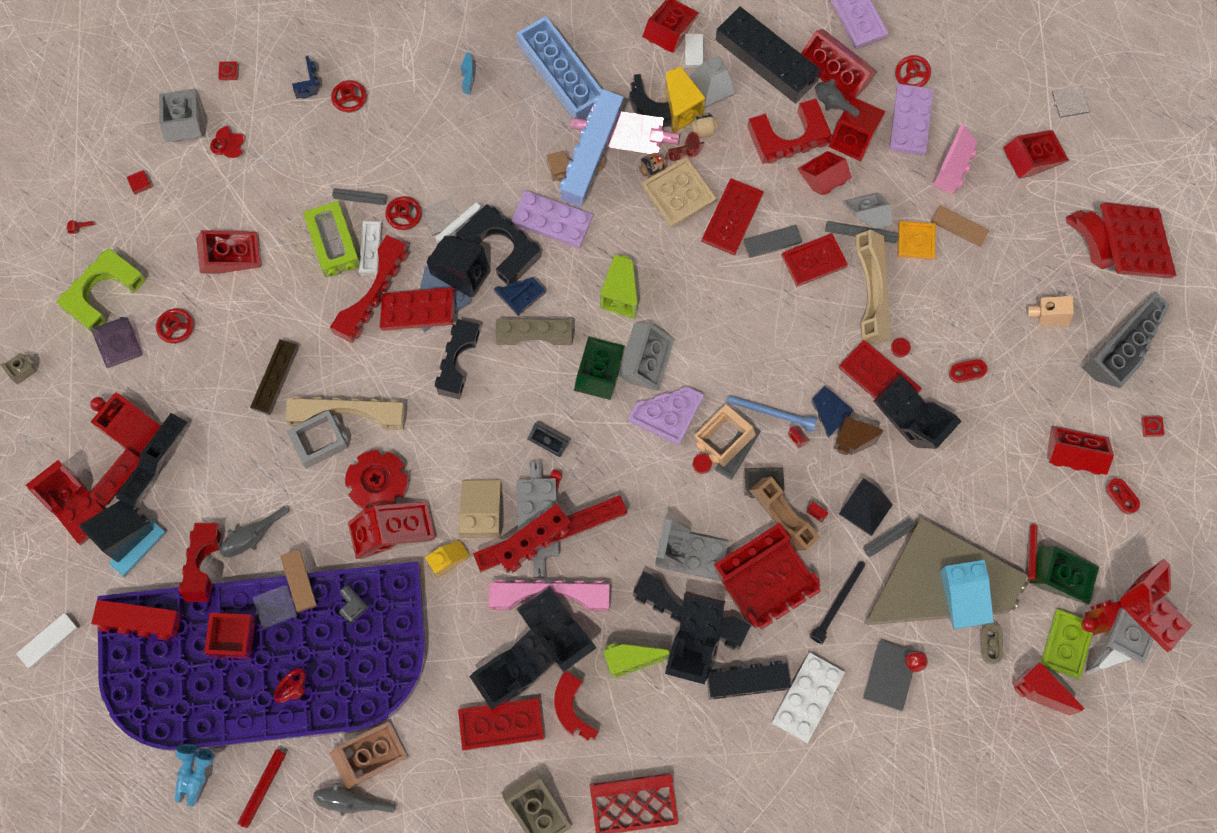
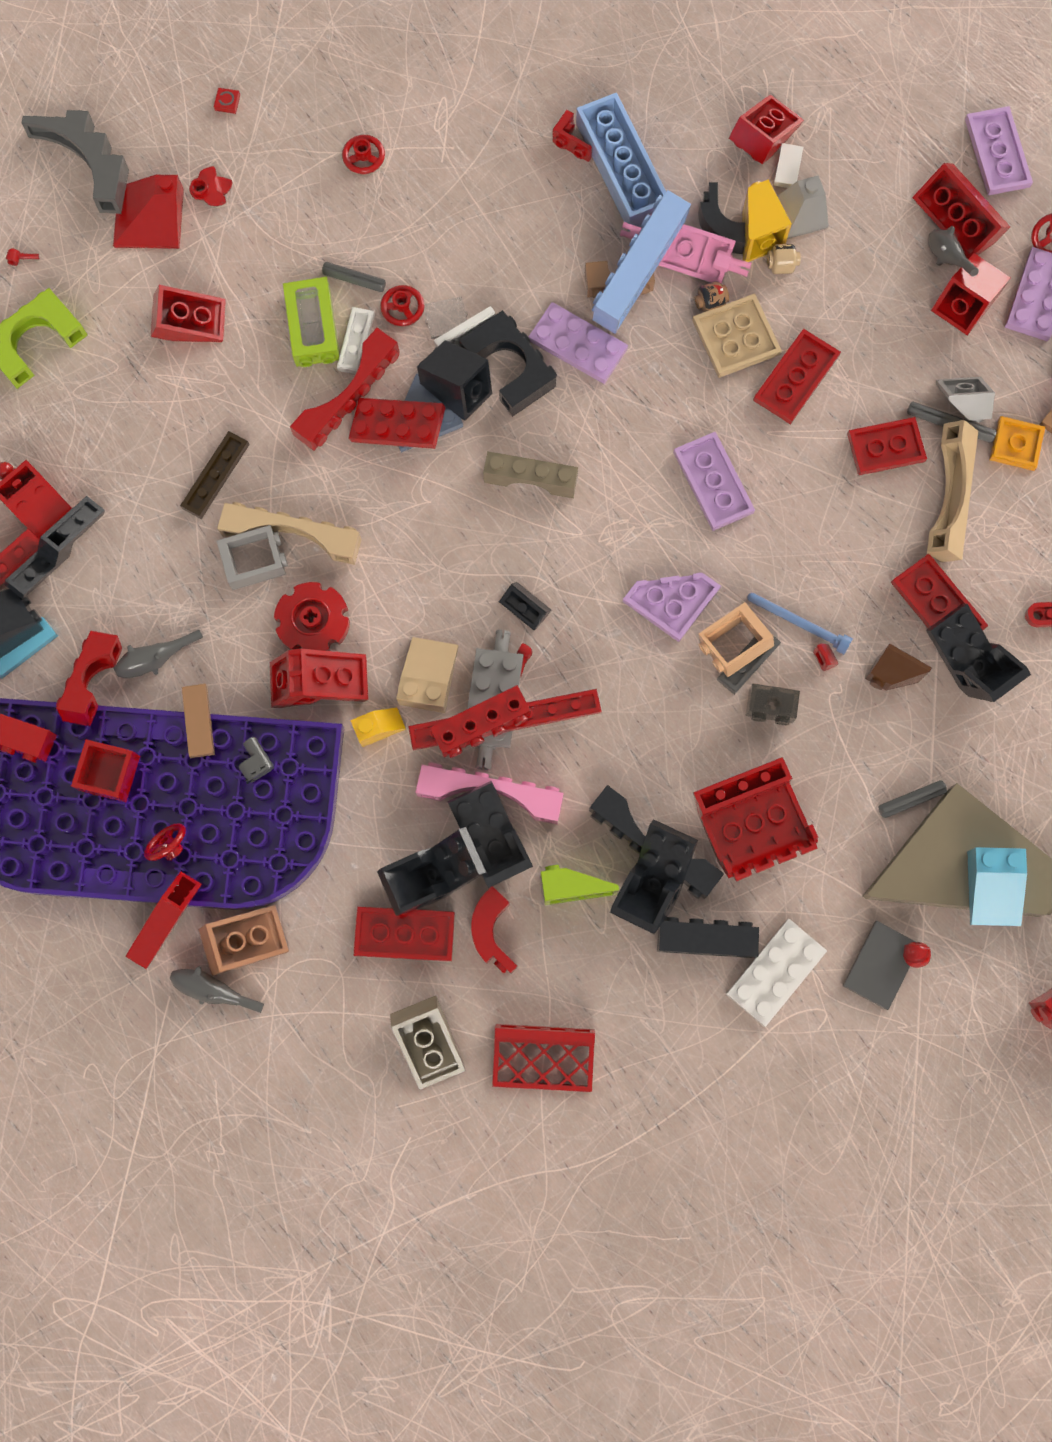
camera: 15 degrees right, 5 degrees up
(108, 118) = (78, 135): none -> dark grey arch
(117, 342) = (40, 401): clear purple slope -> none
(139, 182) = (98, 220): red tile -> none
(168, 320) = (104, 386): red piece -> none
(179, 115) = (160, 145): light grey slope -> none
(180, 172) = (150, 214): none -> red slope
(187, 780) = (29, 929): dark azure piece -> none
(261, 788) = (113, 955): red axle -> none
(274, 606) = (165, 746): clear piece -> none
(299, 750) = (163, 919): none -> red slope
(307, 88) = (317, 135): dark blue bracket -> none
(464, 337) = (446, 467): black arch -> none
(467, 73) = (509, 149): dark azure slope -> none
(510, 59) = (564, 140): none -> red bracket
(520, 295) = (523, 427): dark blue wing -> none
(599, 368) = (600, 532): dark green slope -> none
(619, 288) = (642, 439): lime slope -> none
(646, 356) = (659, 527): light grey slope -> none
(682, 311) = (714, 481): none -> lavender plate
(688, 552) = (666, 772): light grey bracket -> none
(691, 148) = (761, 284): clear red hinge -> none
(702, 464) = (702, 669): red tile -> none
(767, 54) = (878, 184): black brick -> none
(771, 499) = (779, 728): medium nougat arch -> none
(772, 147) = (861, 299): red arch -> none
(772, 241) = (840, 414): dark grey tile -> none
(817, 512) = (830, 752): red tile -> none
(819, 634) = (805, 899): black piece -> none
(825, 172) = (921, 341): red slope -> none
(830, 410) = (871, 632): dark blue wing -> none
(866, 507) = (892, 757): black slope -> none
(900, 347) = (971, 571): red tile -> none
(992, 644) = (1015, 951): dark tan plate -> none

